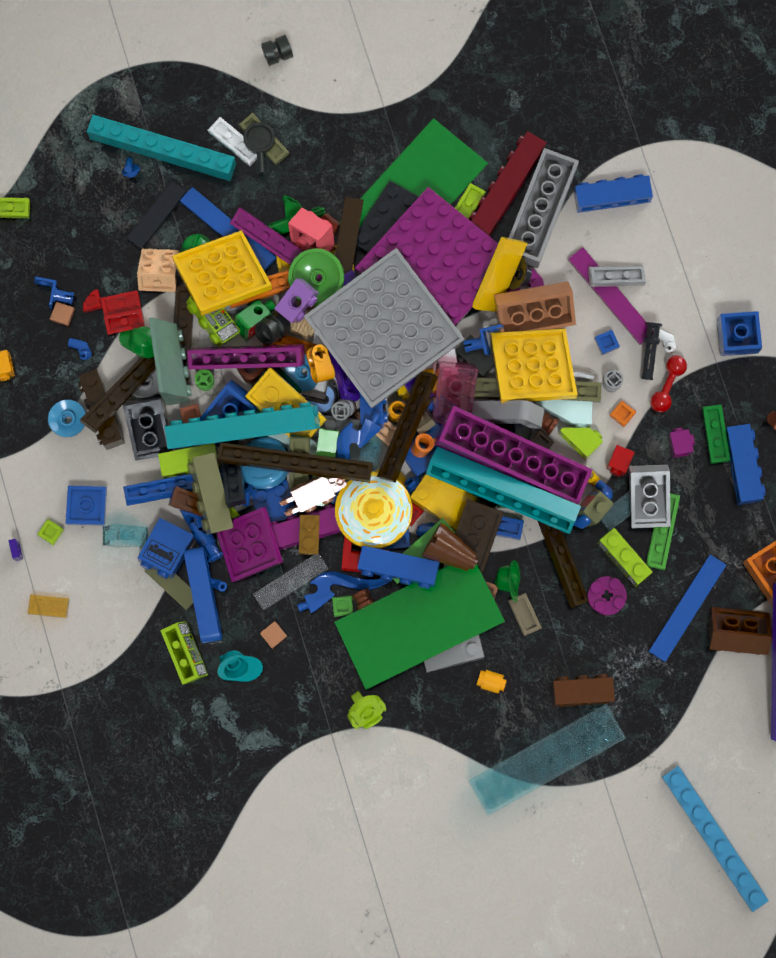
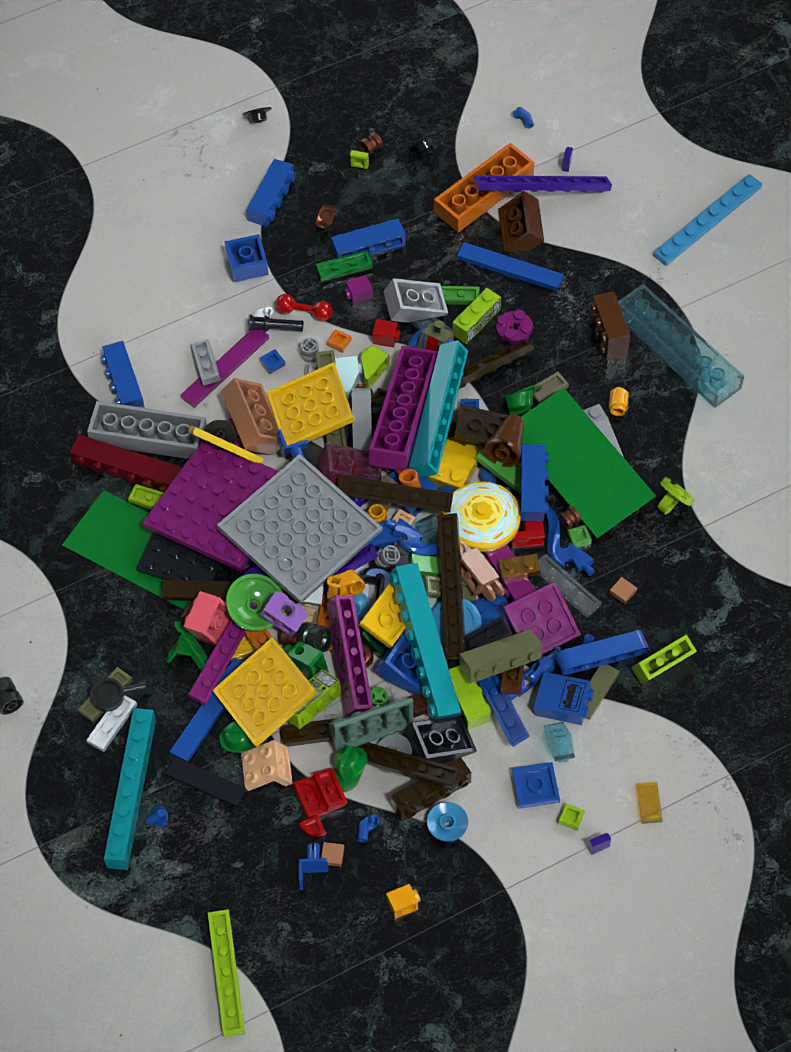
camera: 100 degrees left, 20 degrees down
(239, 667) = (662, 612): teal piece -> none

